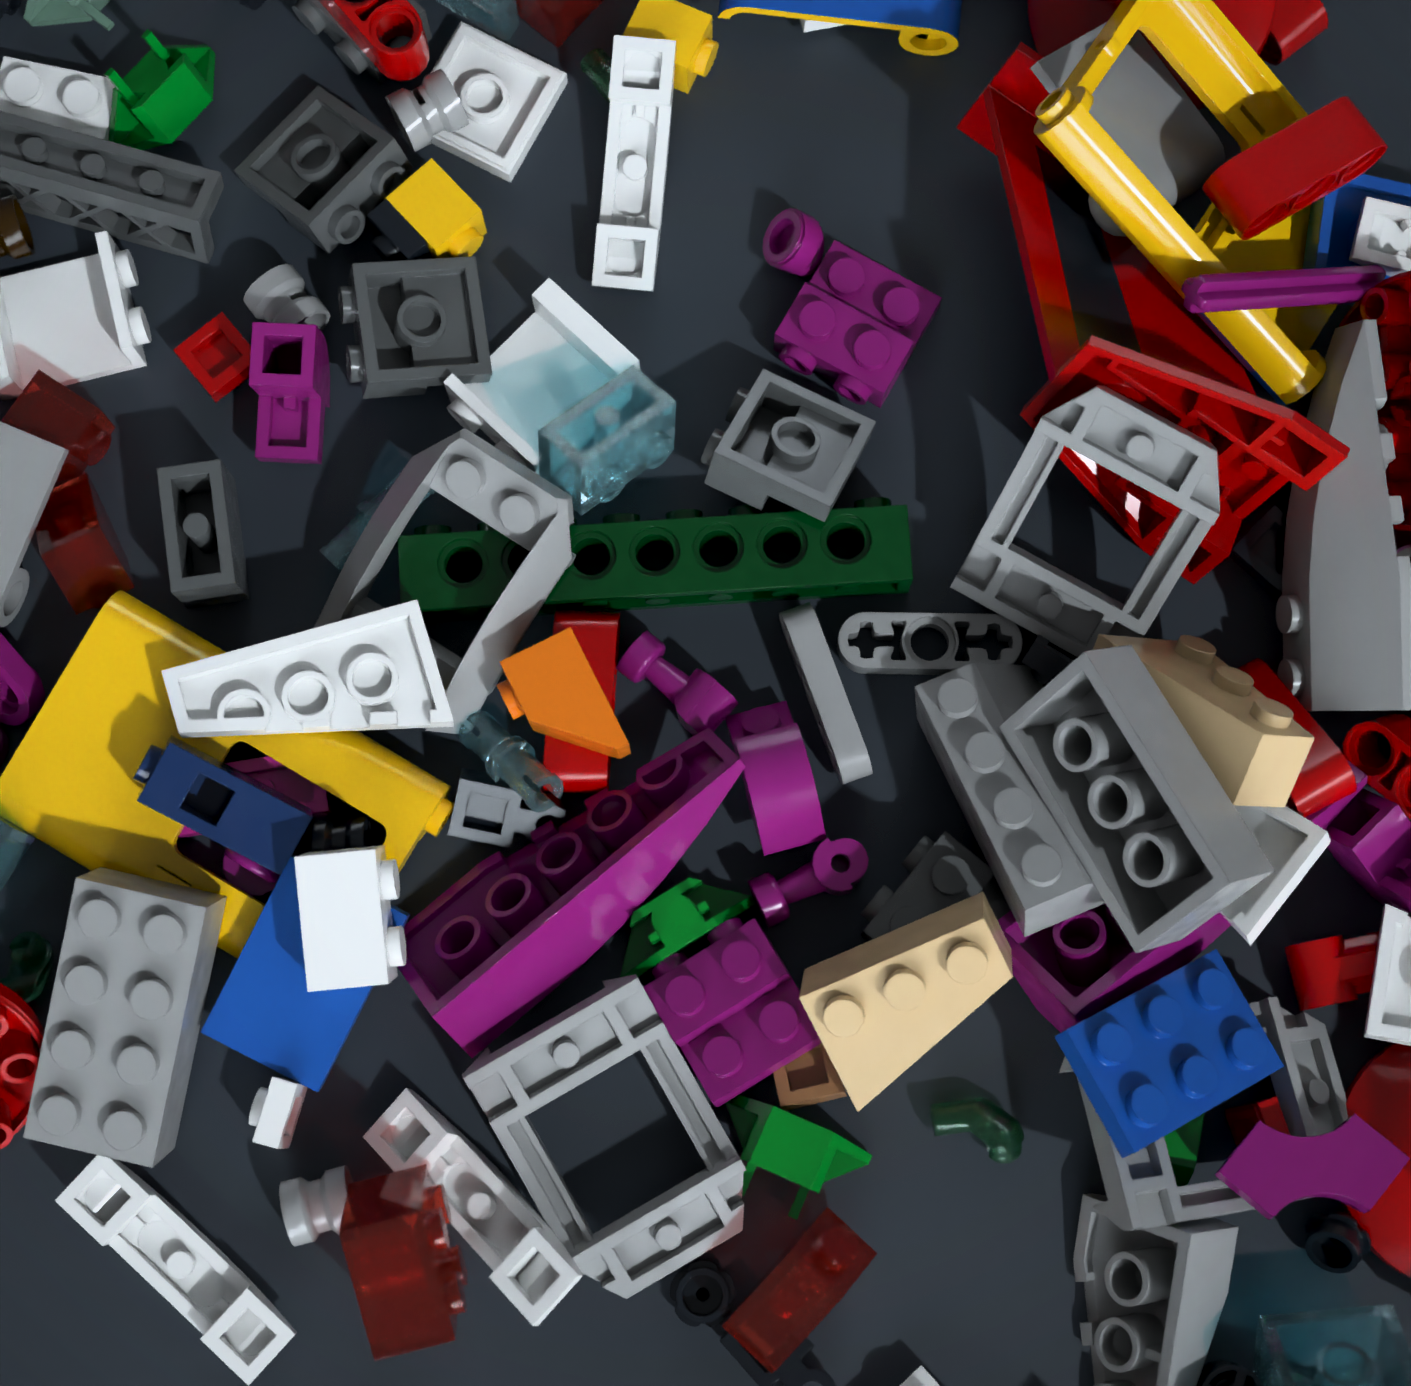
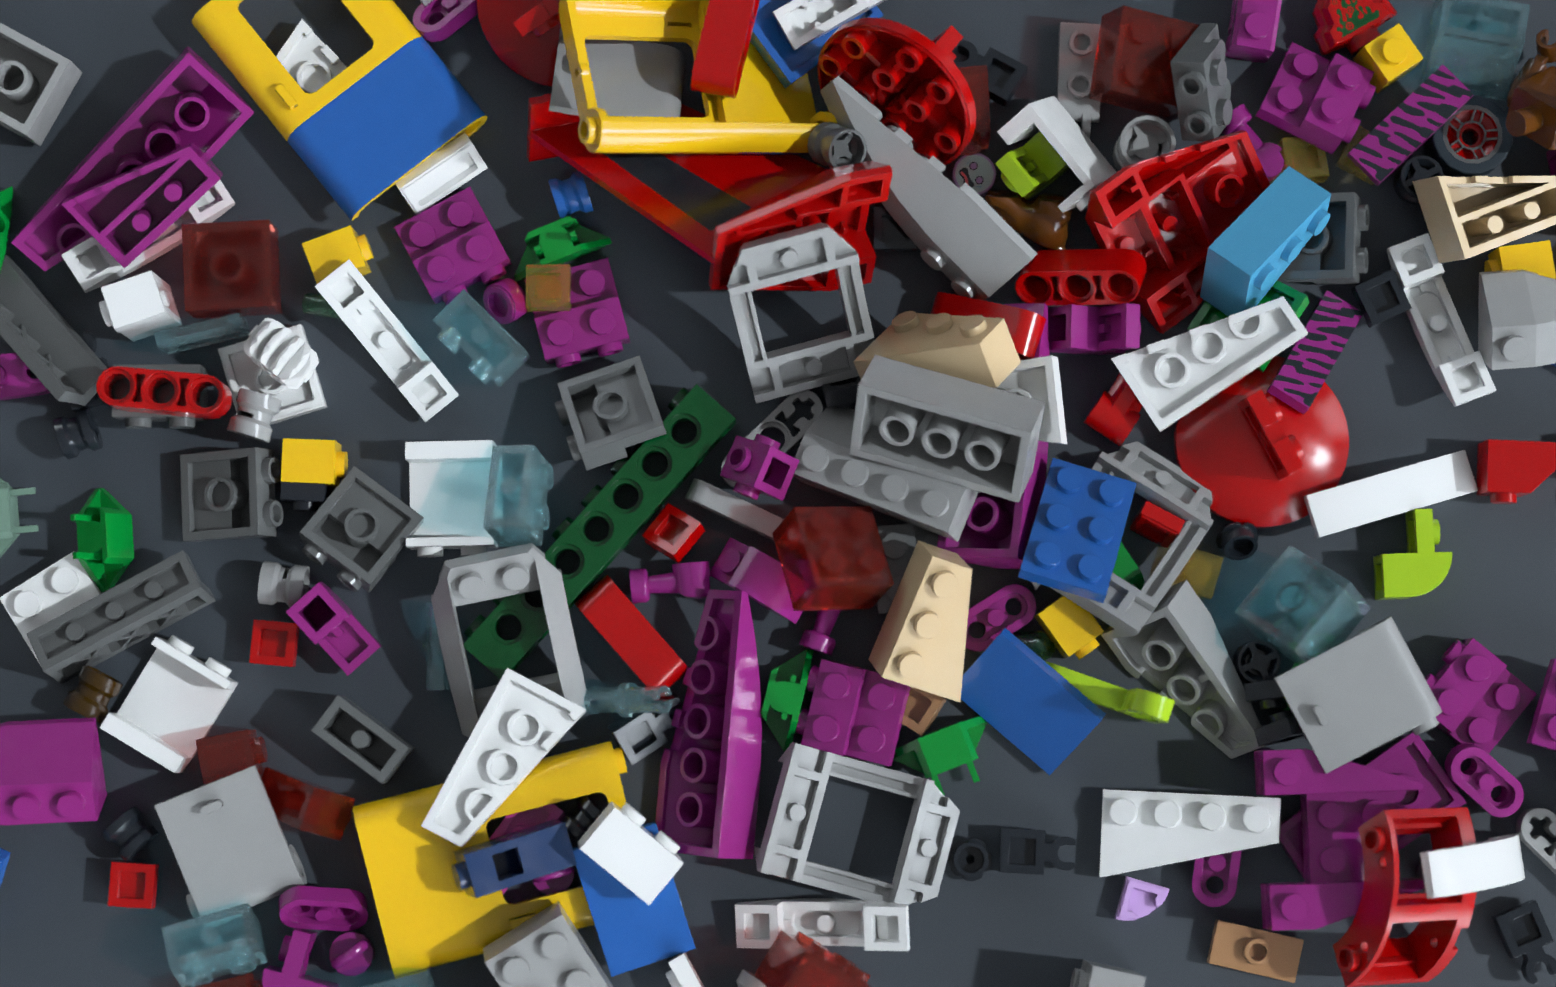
camera: 50 degrees left, 5 degrees up
(514, 71) = (281, 353): none -> white gear
(562, 695) = (624, 644): orange slope -> none
(730, 637) = (673, 533): none -> red plate
(731, 251) = (474, 331): none -> clear light blue brick
(794, 142) = (453, 246): none -> magenta plate
(799, 1289) = (1013, 811): clear red slope -> none
(850, 262) = (548, 287): none -> clear yellow plate
(854, 57) = (441, 174): none -> white tile
(871, 820) = (832, 558): none -> clear red brick
(887, 651) = (759, 467): none -> magenta brick
(902, 236) = (559, 244): none -> green piece
(933, 1187) = (1028, 701): none -> blue tile
(965, 199) = (570, 195): none -> blue wheel
(984, 1060) = (995, 618): none -> magenta plate
(1051, 1307) = (1132, 702): none -> lime beam
(1057, 1151) = (1070, 627): none -> yellow brick
(1260, 1239) = (1202, 573): none -> clear yellow plate
(1279, 288) = (778, 105): magenta axle -> none
(1316, 393) = (836, 145): none -> dark grey wheel
(1343, 1165) = (1207, 503): magenta tile -> none

